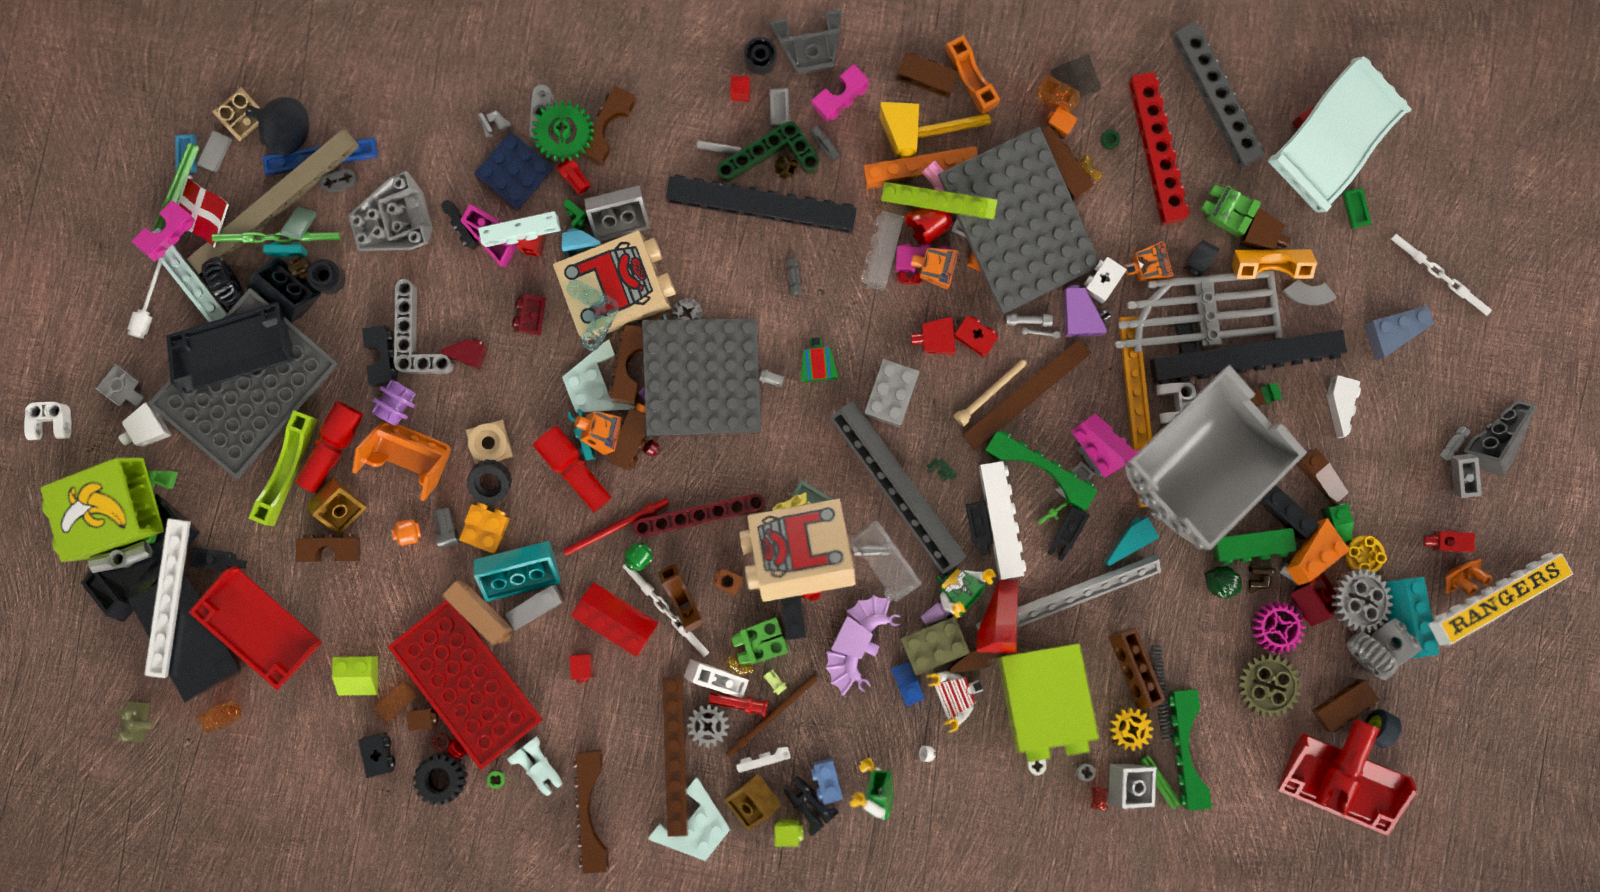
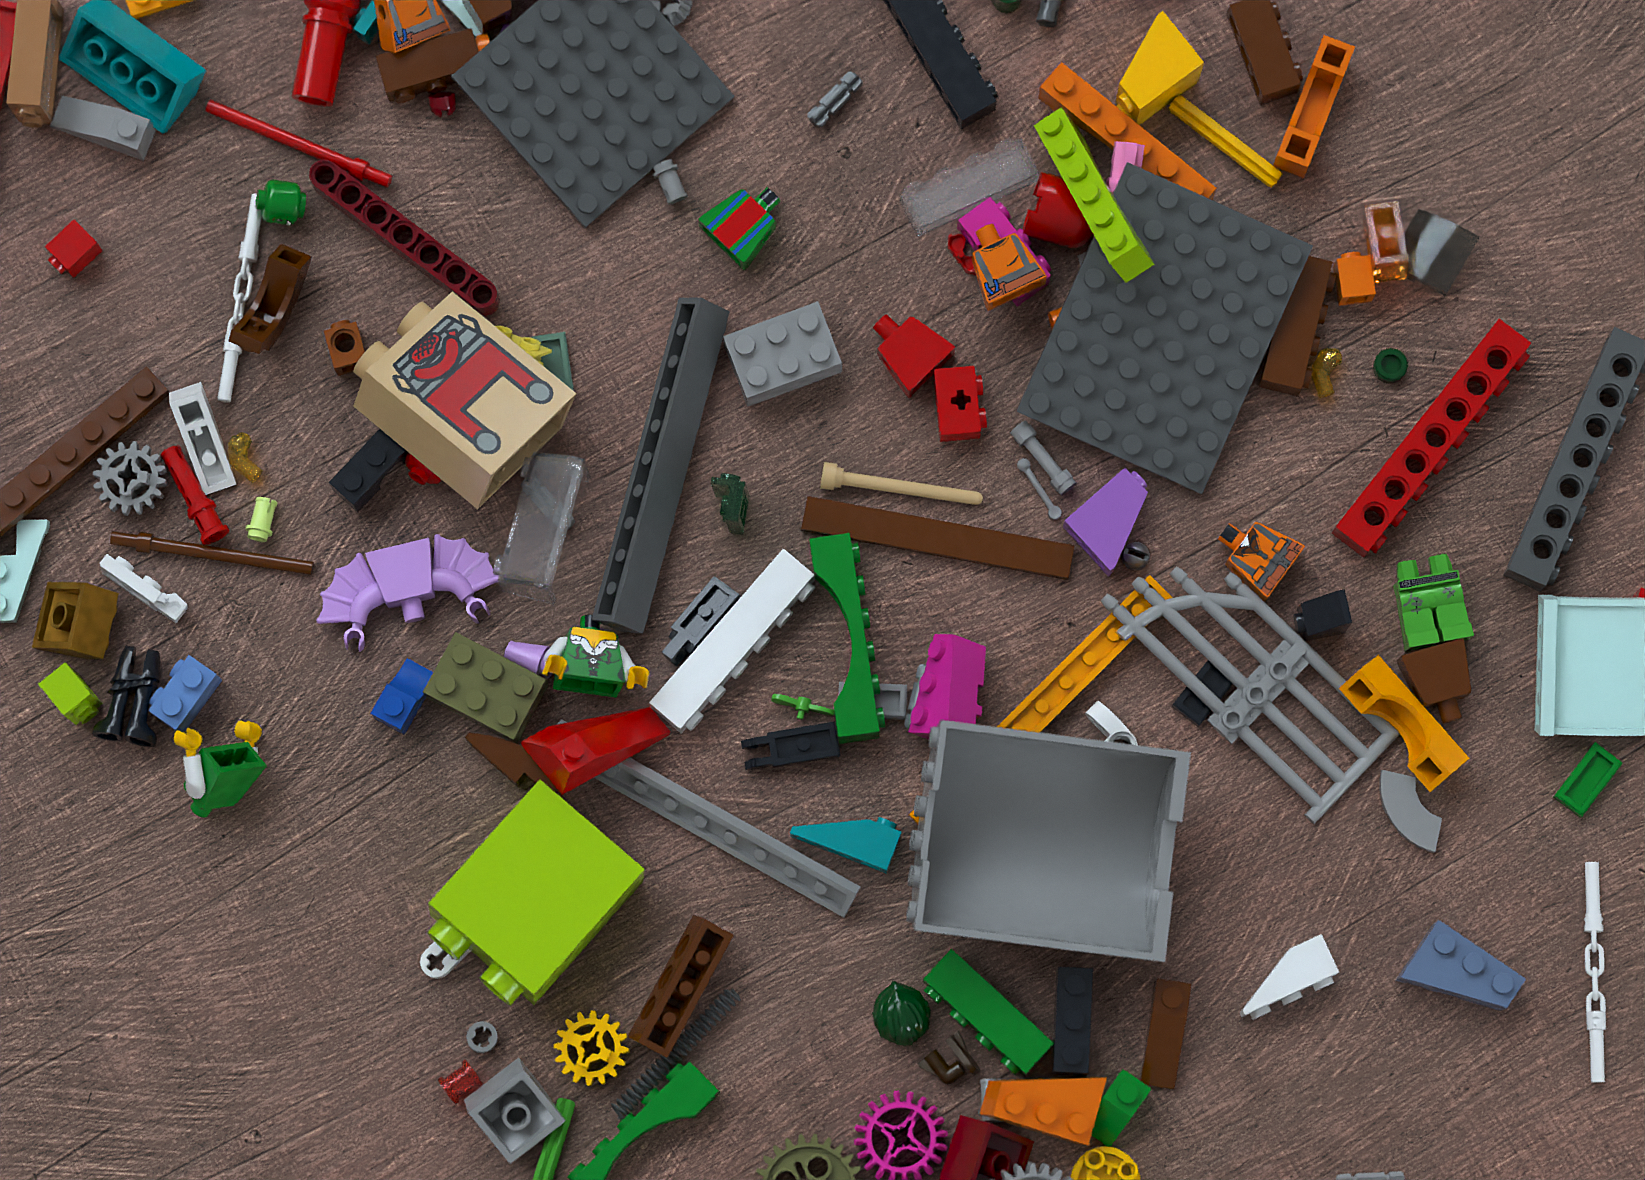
camera: 50 degrees right, 5 degrees down
(615, 619) = (172, 241): red slope -> none
(755, 644) = (289, 453): bright green hips -> none
(926, 753) = (330, 799): white hinge -> none
(955, 696) = (440, 771): torso -> none
(1112, 272) = (1169, 524): white brick -> none
(1248, 356) = (1247, 796): black brick -> none
(1266, 394) = (1204, 856): green leg -> none

